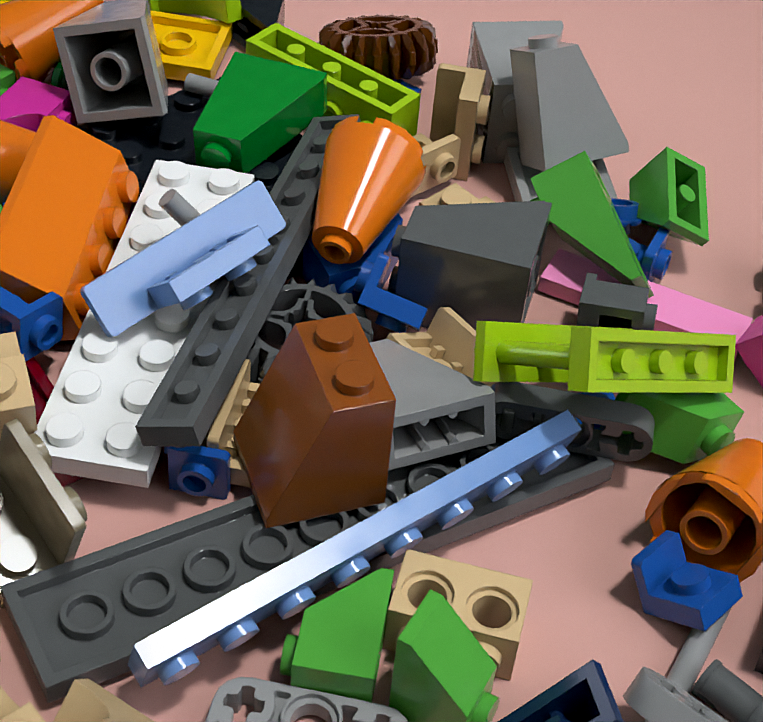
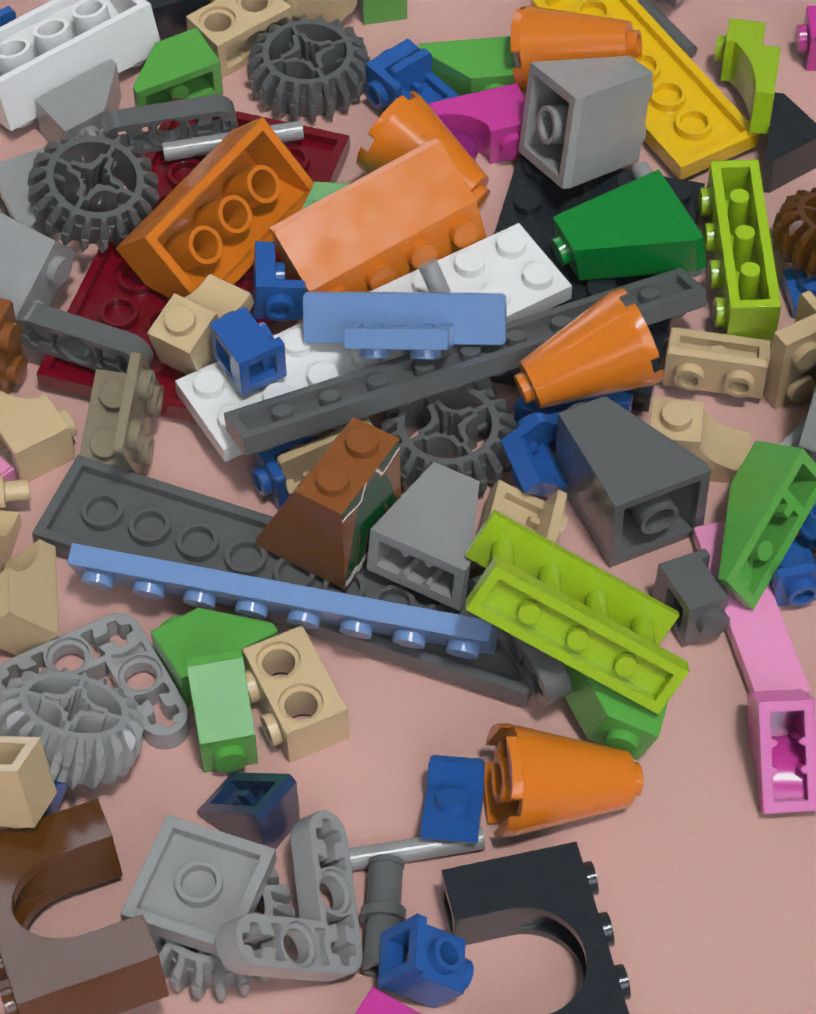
camera: 55 degrees right, 10 degrees up
(81, 369) = (247, 351): none -> blue brick

